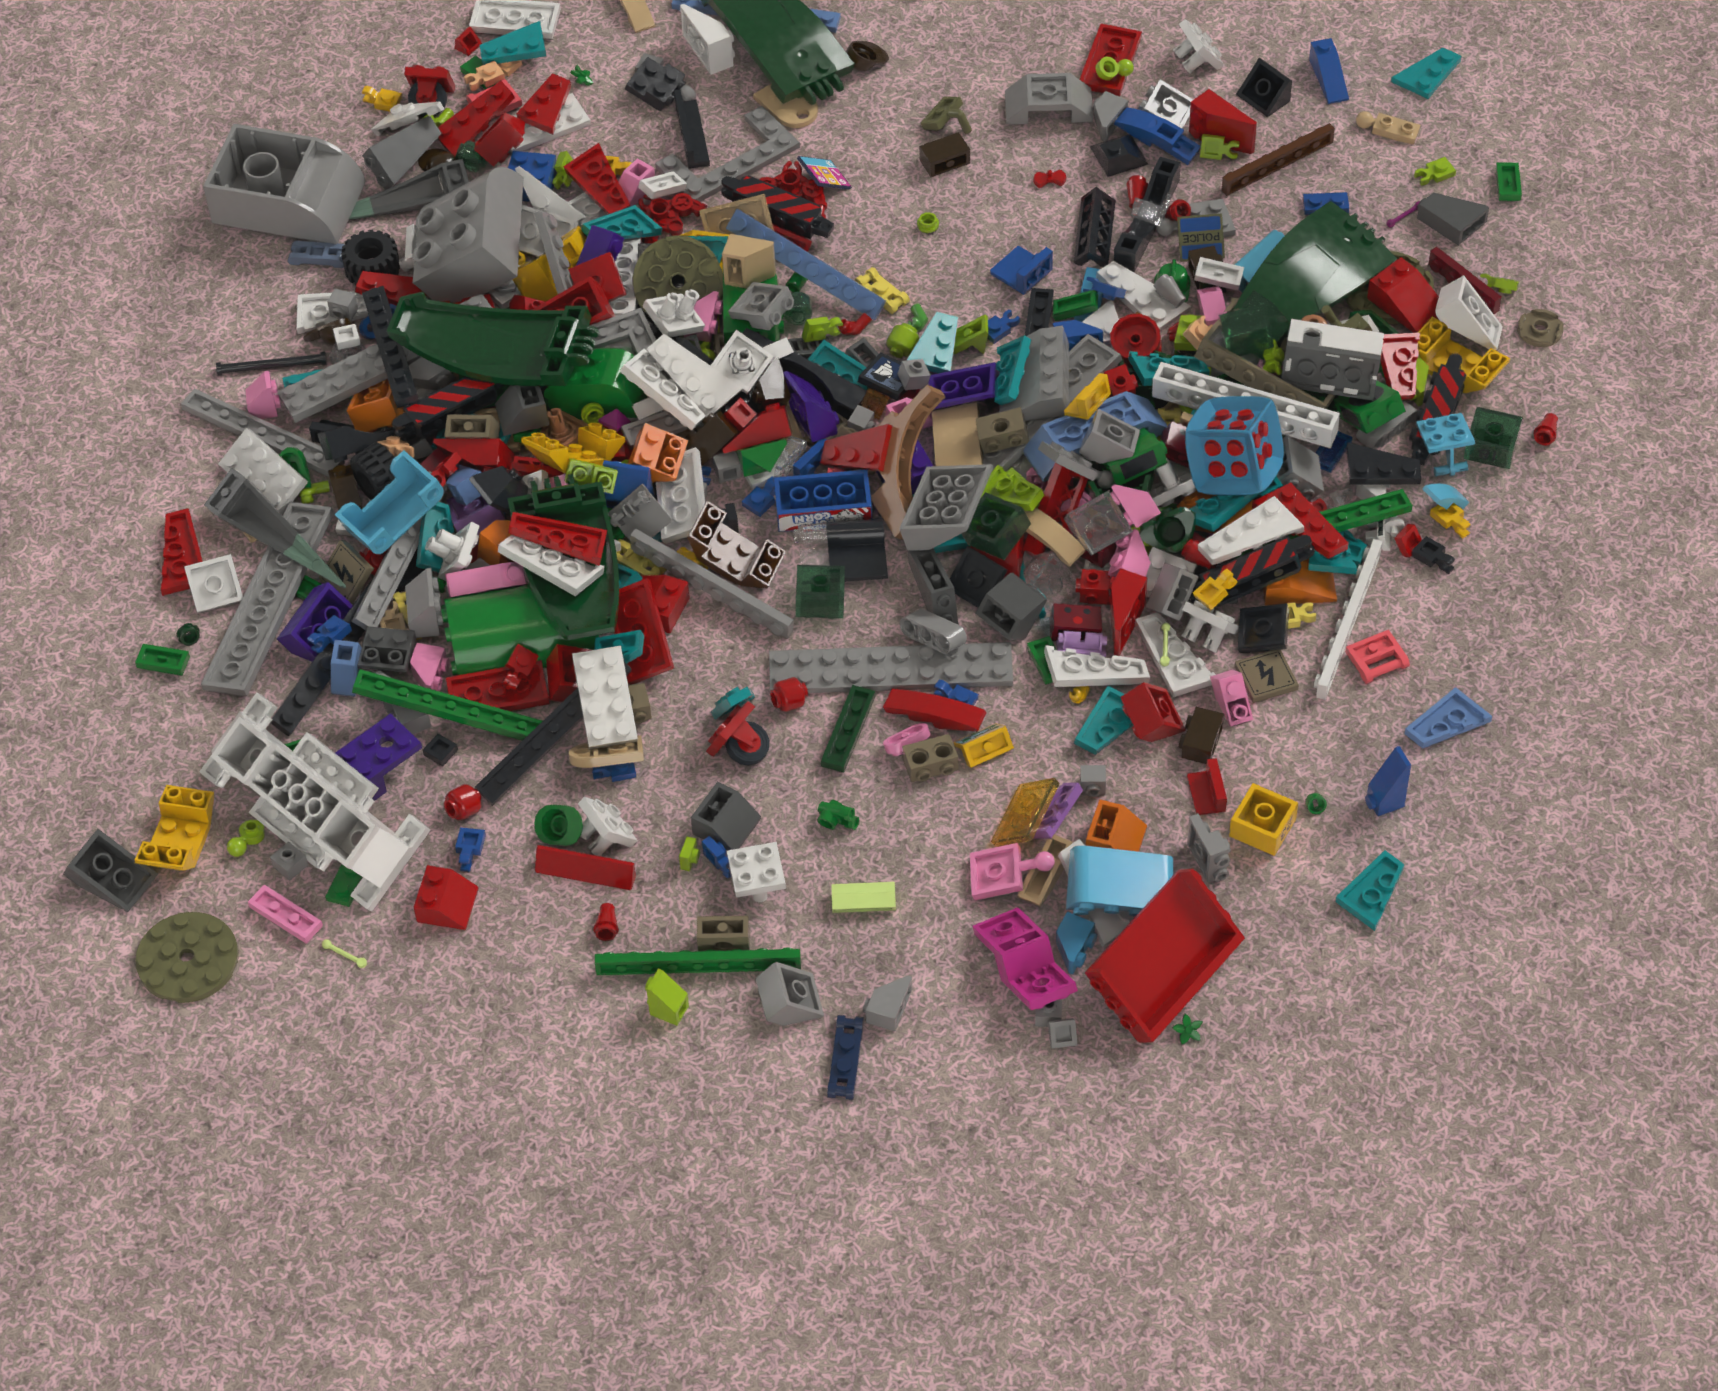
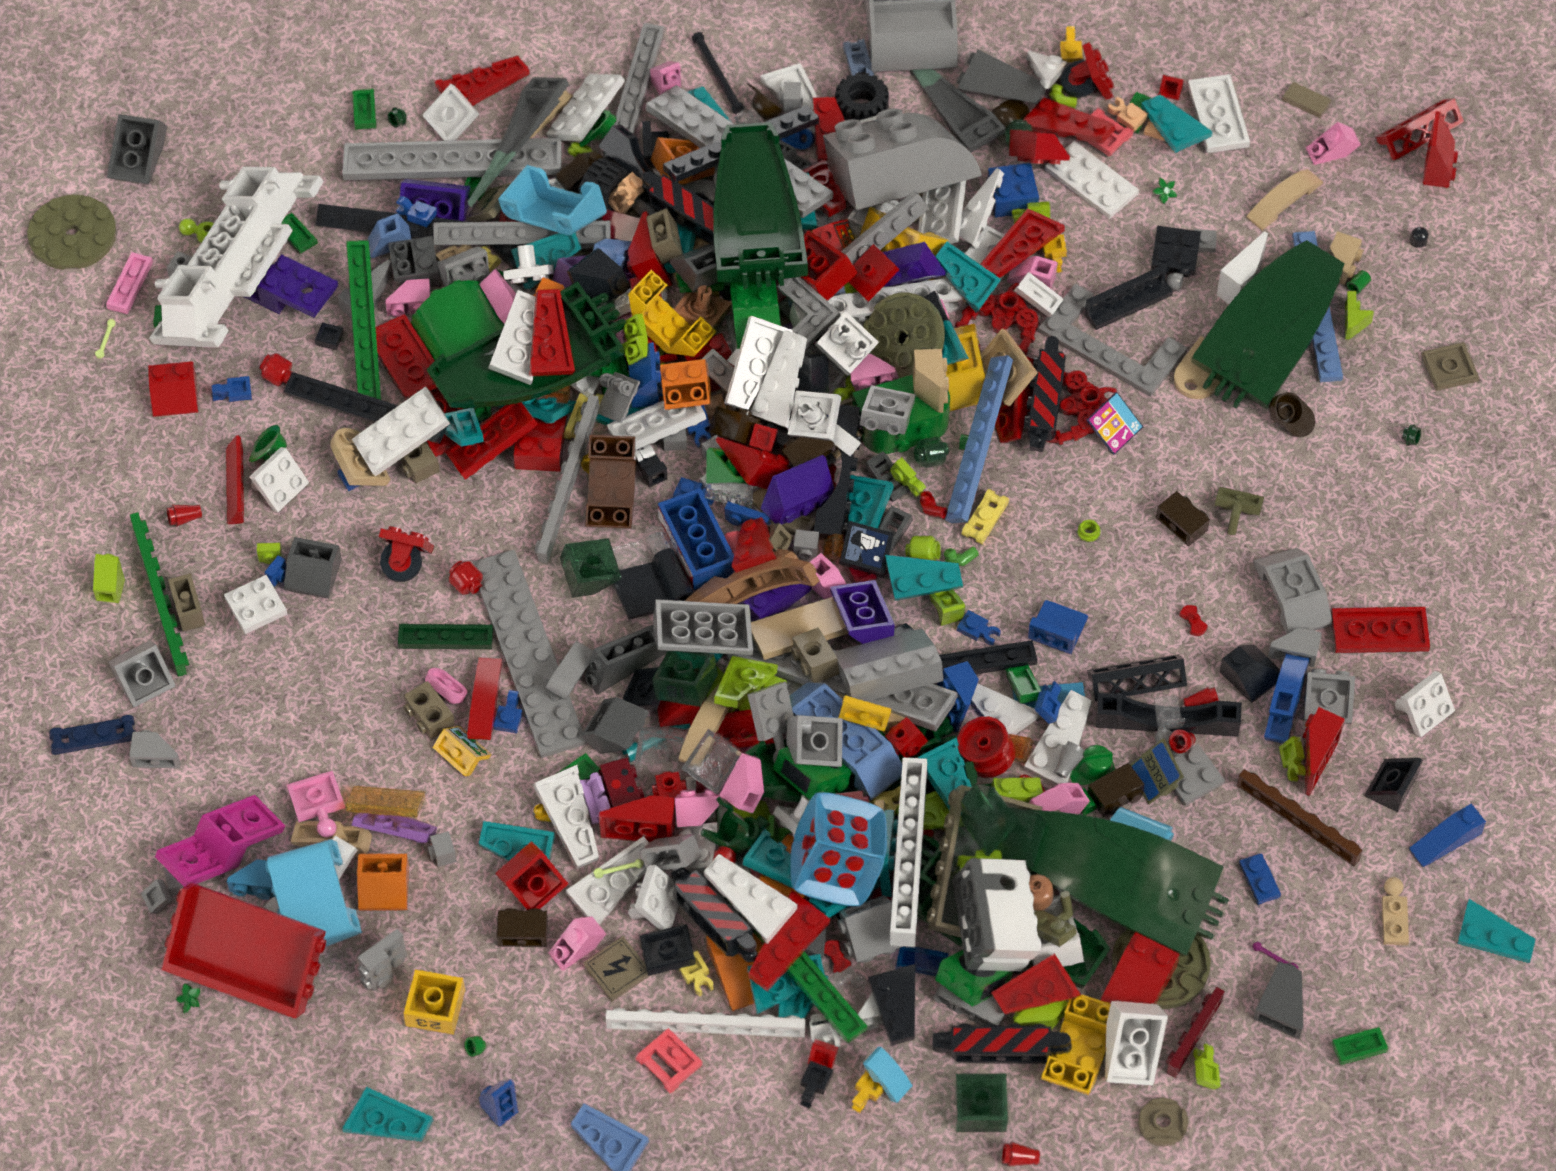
camera: 70 degrees right, 5 degrees up
(181, 829) = (182, 184): yellow slope -> none
(346, 336) = (751, 111): white plate -> none
(446, 467) = (620, 233): red plate -> none
(520, 663) = (427, 357): red plate -> none
(546, 103) = (1105, 170): red wing -> none
(592, 418) = (723, 323): lime plate -> none
(614, 420) = (721, 342): magenta slope -> none
(731, 700) = (436, 533): teal wing -> none
(836, 813) = (343, 652): green plate -> none
(863, 897) = (261, 700): yellowish green piece -> none
(913, 374) = (865, 571): light grey plate -> none
(1011, 368) = (891, 635): teal wing -> none
(1123, 67) = (1365, 642): lime plate -> none
(1196, 331) = (1010, 789): light nougat plate -> none
(1208, 789) = (464, 950): red panel -> none
(1214, 591) = (669, 881): yellow plate -> none
(1219, 273) = (1099, 794): white plate -> none
(1438, 170) = (1349, 975): lime plate -> none
(1446, 434) = (957, 1054): medium azure plate -> none

